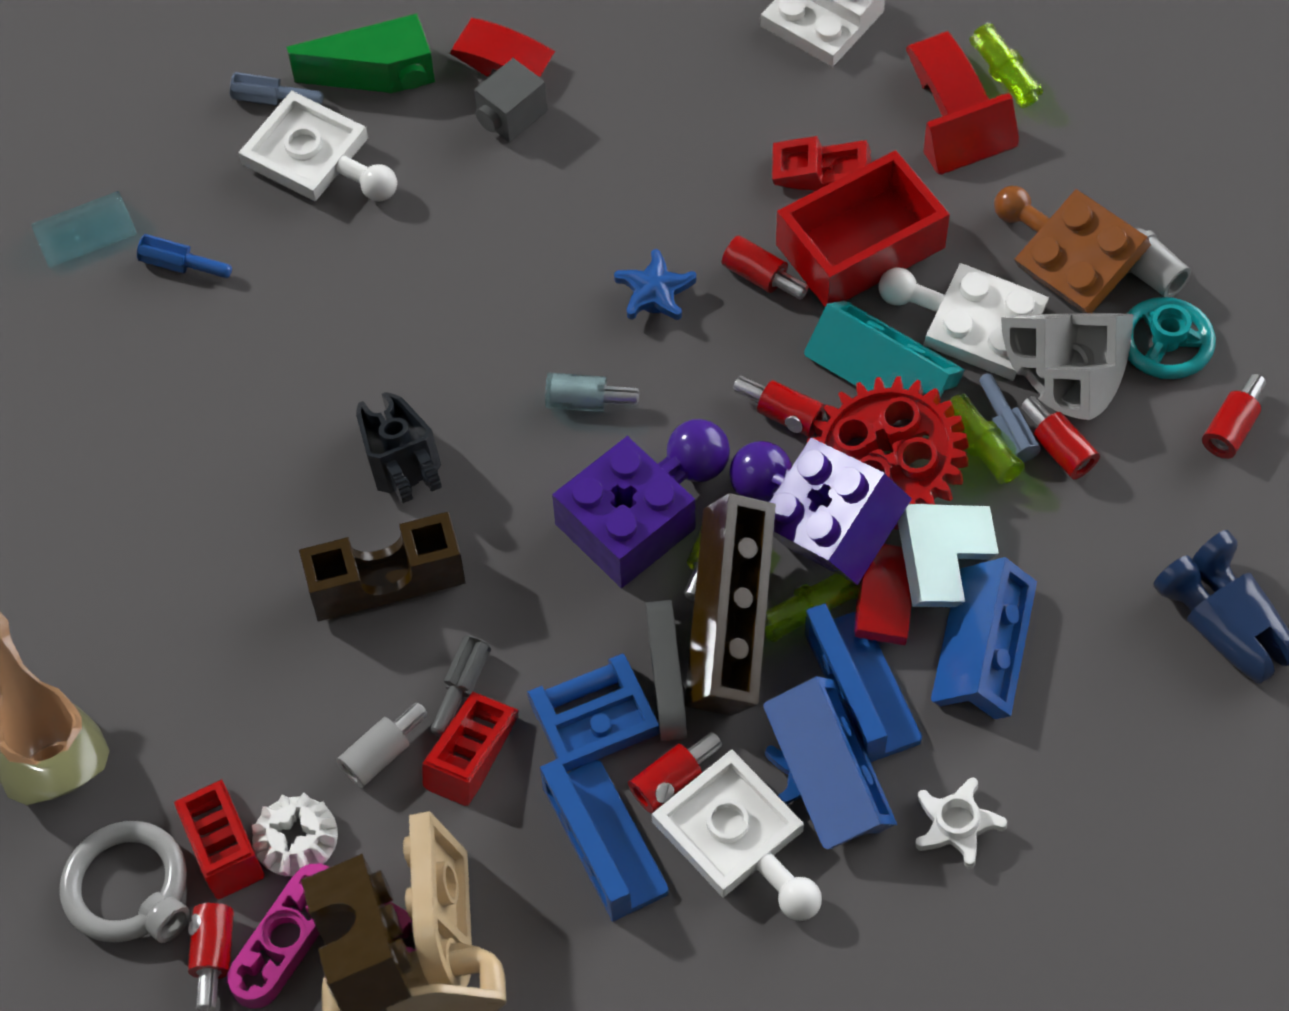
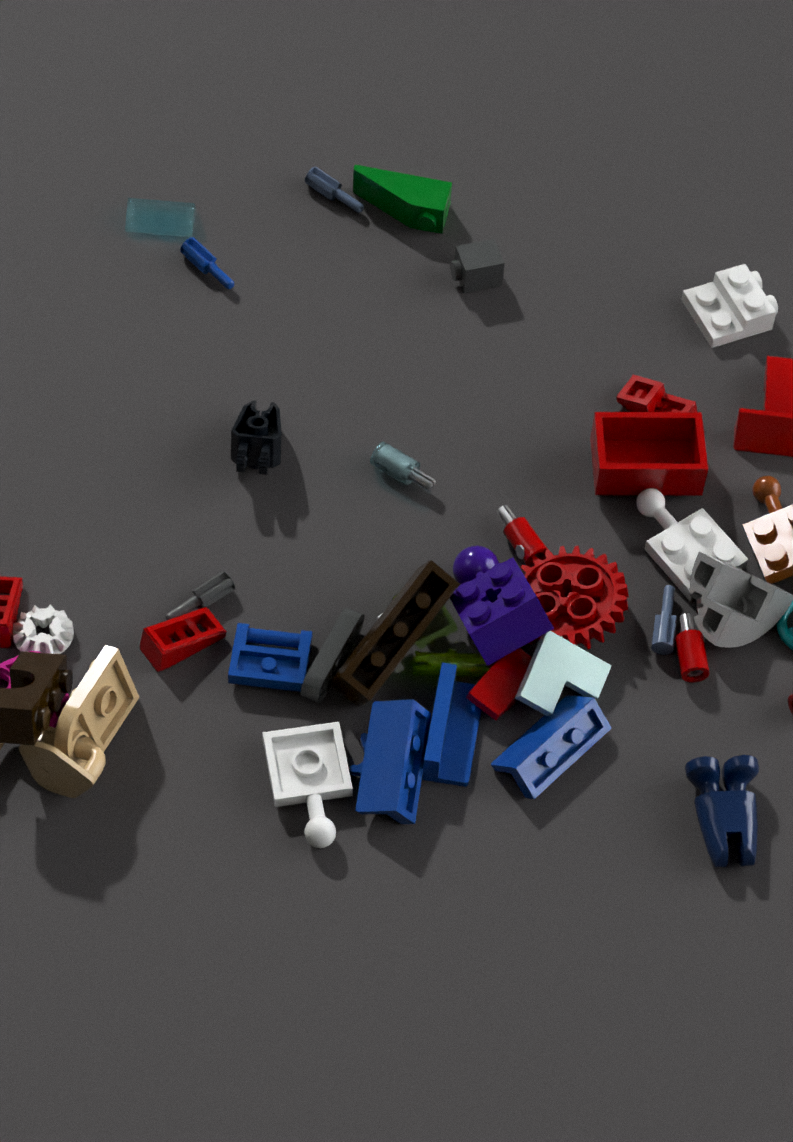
camera: 25 degrees right, 5 degrees down
(311, 145) = (330, 234): white plate -> none
(352, 580) = (172, 501): dark brown arch -> none
(379, 746) = (128, 607): light grey piece -> none
(491, 46) = (489, 224): red slope -> none
(604, 837) = (226, 732): blue panel -> none
(632, 509) = (378, 550): dark purple brick -> none
(655, 287) = (490, 425): blue animal -> none
(671, 772) = (295, 715): red piece -> none
(761, 267) = (568, 446): red piece -> none
(866, 348) = (600, 525): teal panel -> none
(957, 821) = (454, 842): white animal -> none
(986, 441) = (639, 624): clear neon green pin -> none

